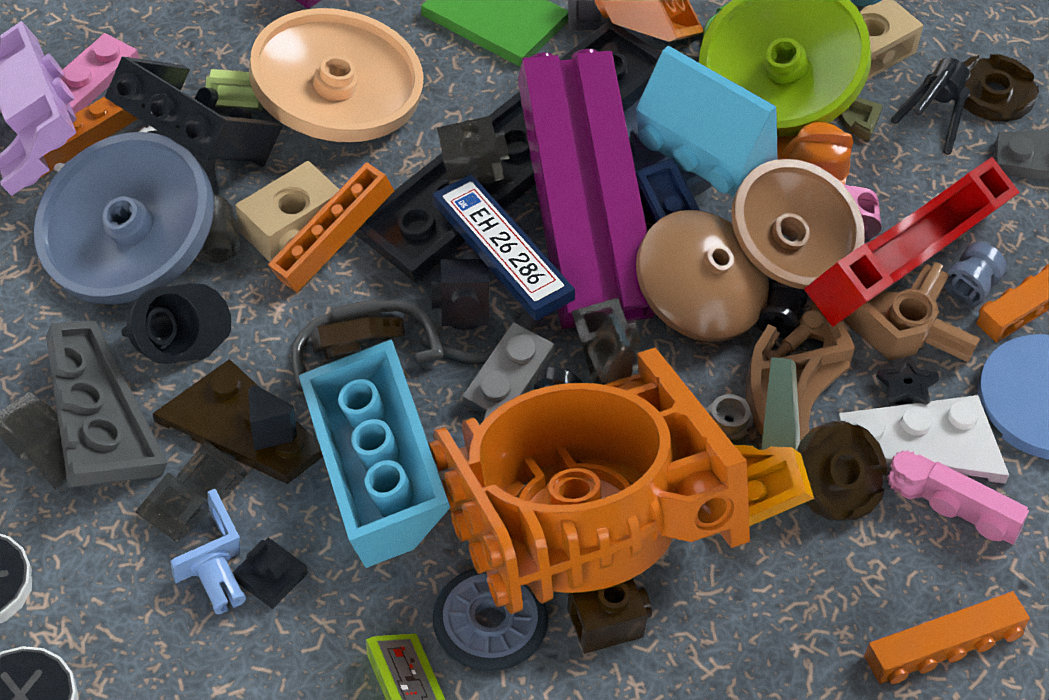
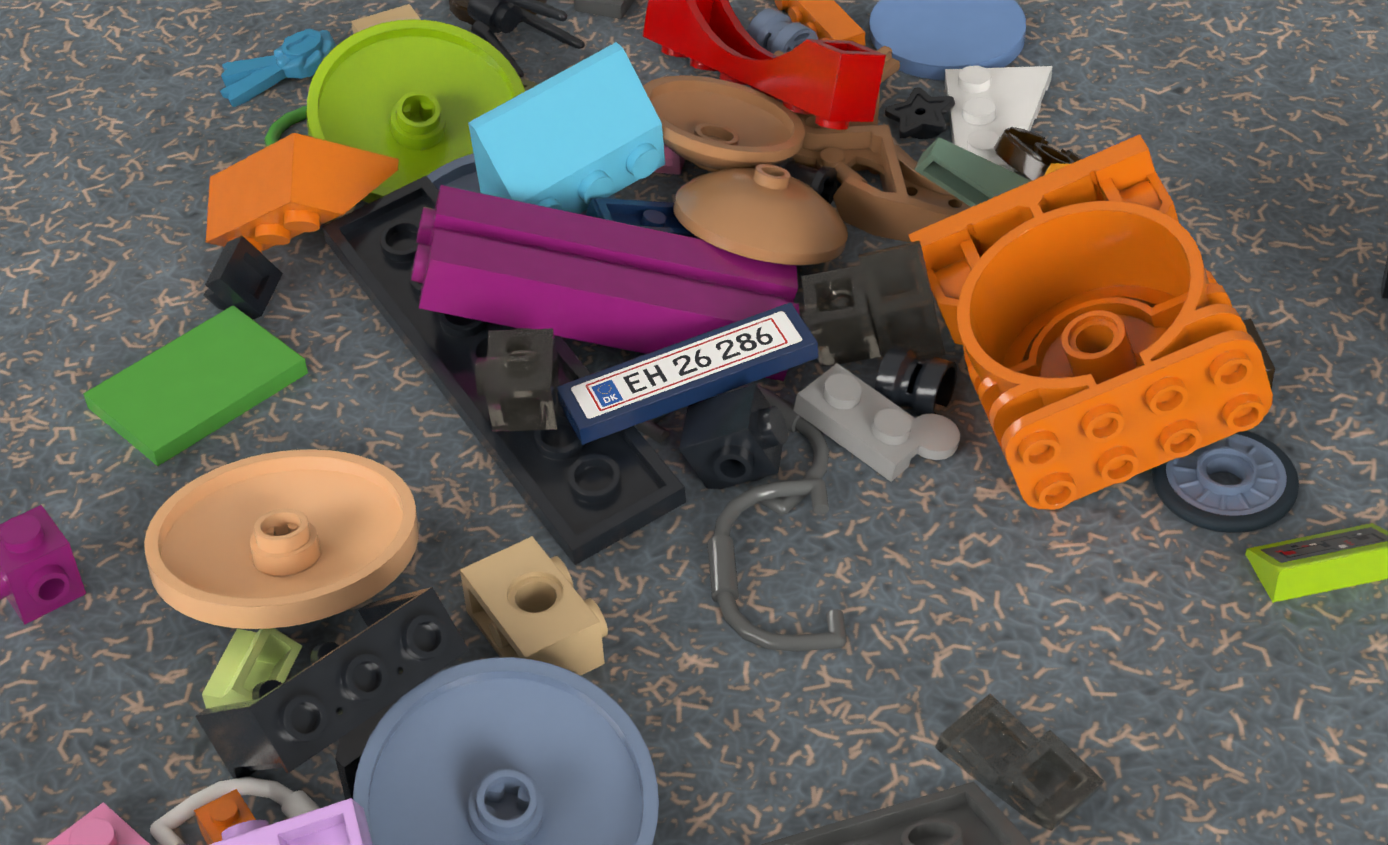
camera: 75 degrees left, 10 degrees down
(185, 315) = (724, 766): black piece -> none
(211, 561) = (1146, 737): light blue bracket -> none
(219, 413) = (896, 706): dark brown wing -> none
(270, 419) = (939, 634): black slope -> none
(270, 572) = (1156, 682): black tile -> none
(331, 227) = (590, 559): orange piece -> none
(346, 337) = (813, 532): dark brown wing -> none
(375, 452) = (1003, 529): medium azure slope -> none
(947, 638) = (1252, 139): orange piece -> none
(956, 494) = (1085, 93): bright pink hinge -> none

